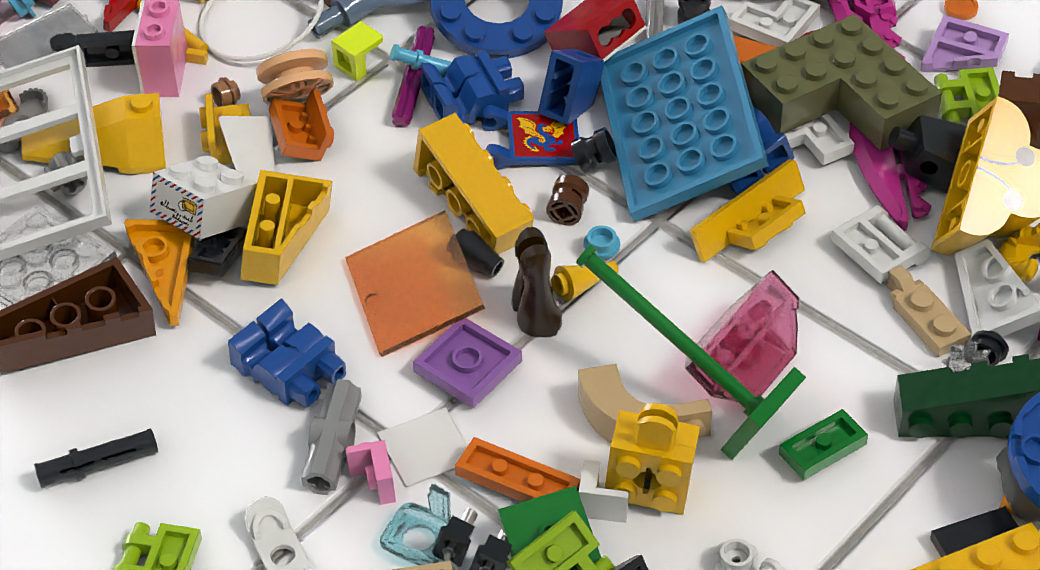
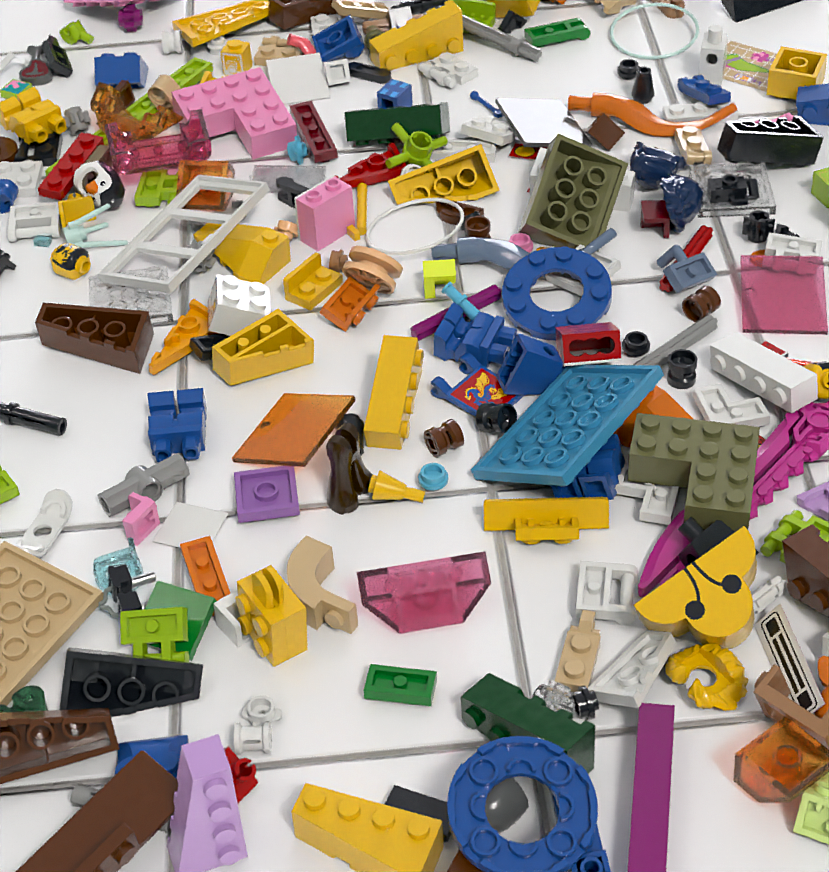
camera: 45 degrees right, 5 degrees down
(124, 88) = (287, 228): none -> light nougat plate
(249, 143) = (309, 298): white sticker -> none
(756, 408) = (374, 633): green tile -> none

